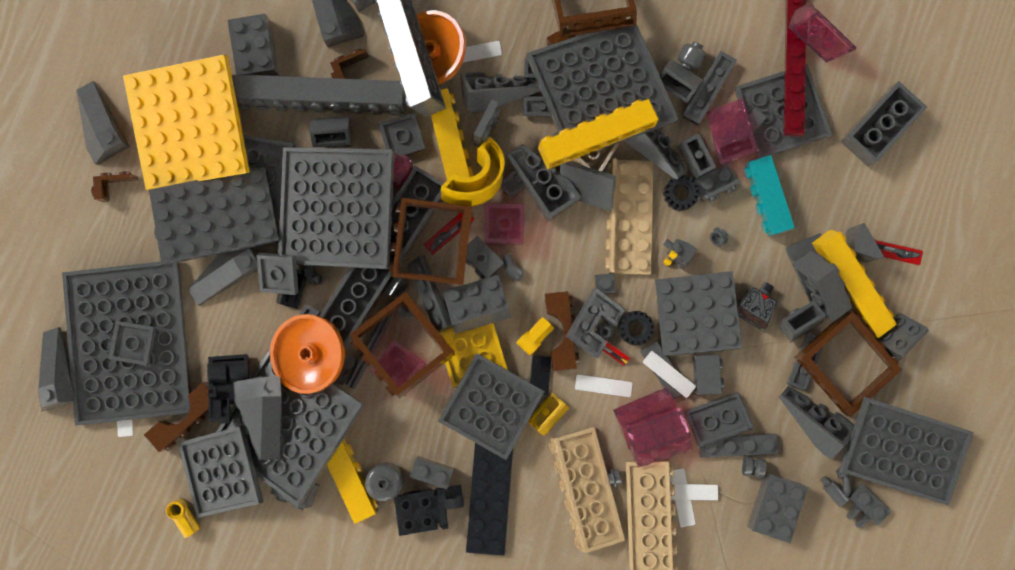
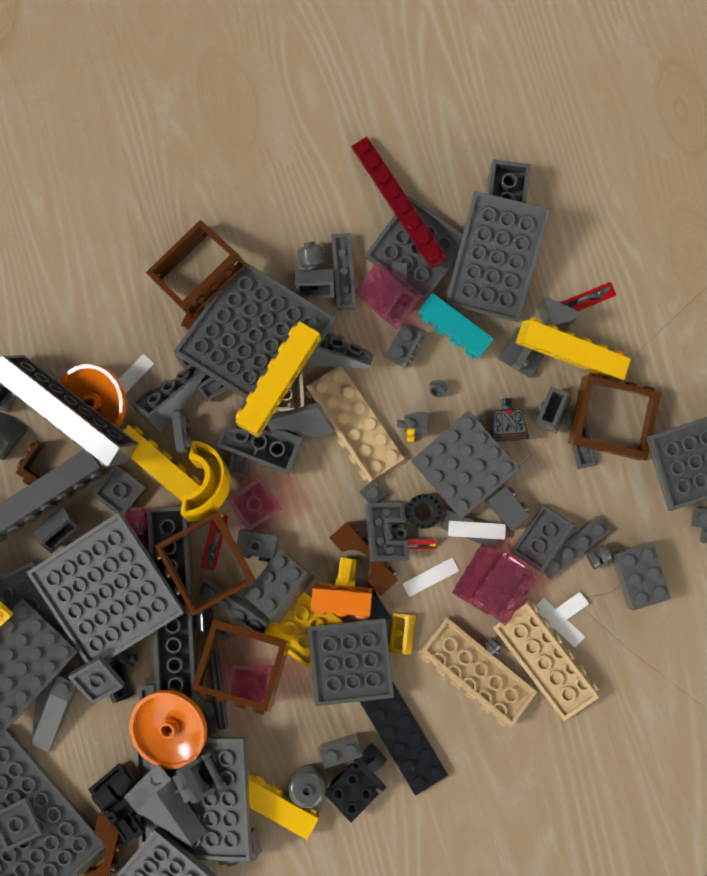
camera: 35 degrees left, 0 degrees up
(295, 408) = (190, 782): none -> dark grey piece
(511, 268) = (287, 536): dark grey arm -> none
(519, 351) = (341, 600): none -> orange brick
(692, 193) = (382, 385): black tyre -> none
(696, 156) = (373, 336): dark grey brick -> none
(820, 33) = (401, 165): clear pink slope -> none
(823, 285) = (549, 370): dark grey brick -> none
(825, 430) = (631, 484): dark grey wedge -> none
(839, 495) = (682, 530): dark grey plant -> none
(846, 162) = (497, 256): none -> dark grey plate
(902, 336) = (642, 364): dark grey bracket -> none

